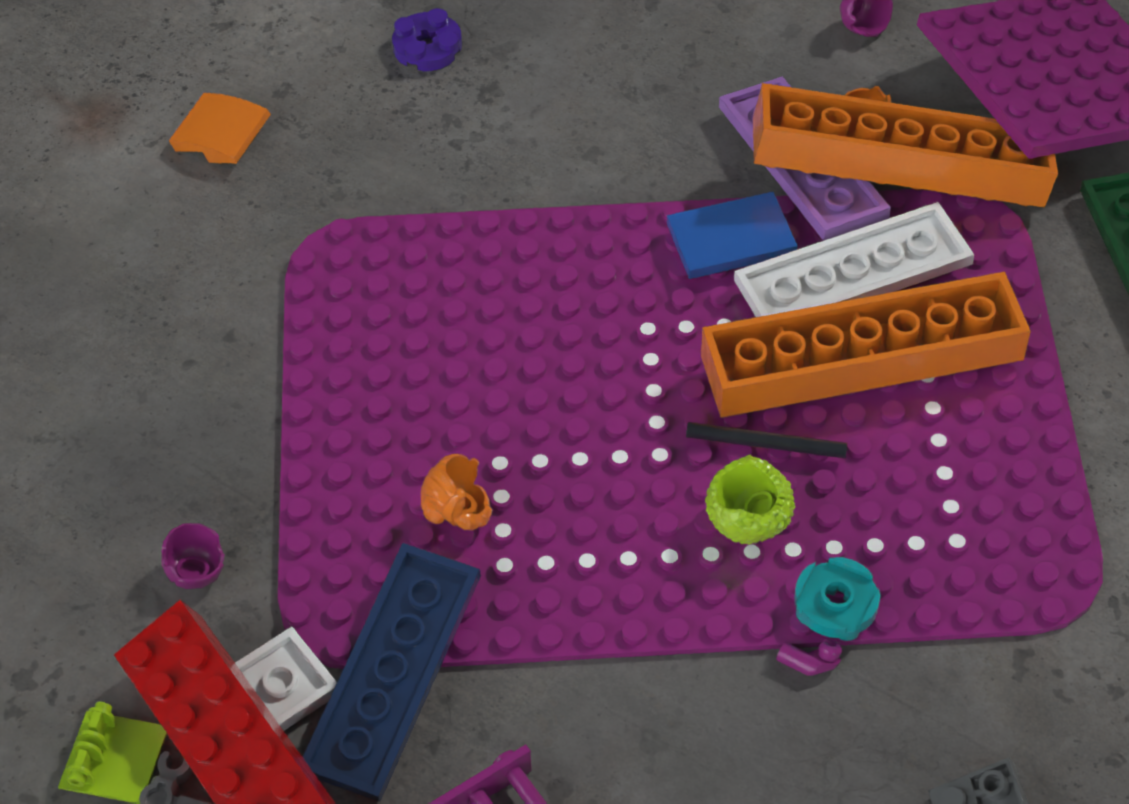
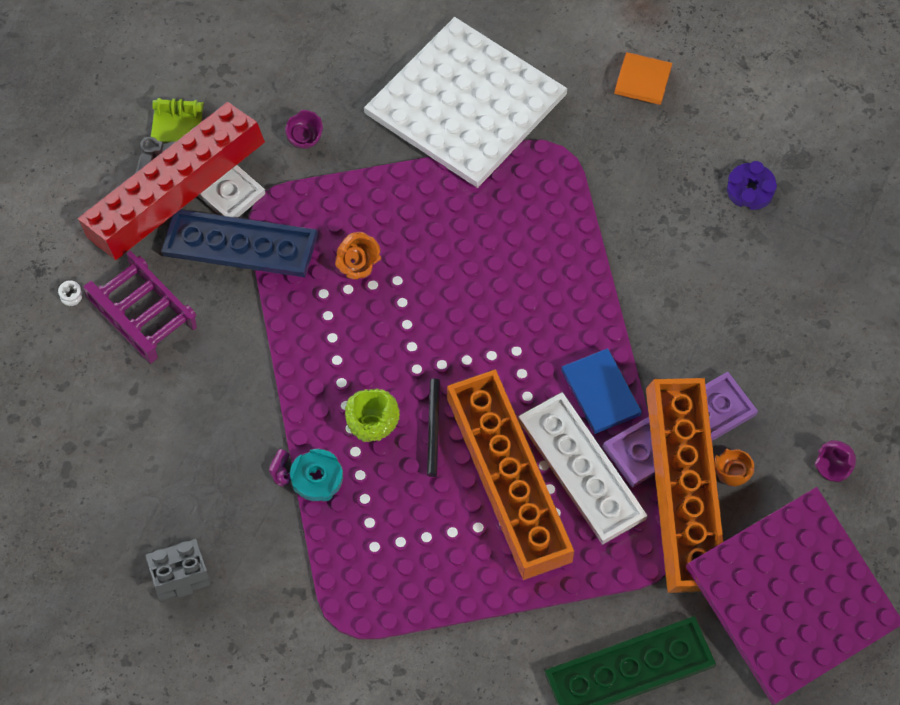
camera: 80 degrees right, 10 degrees up
(197, 342) = (465, 101): none -> white plate

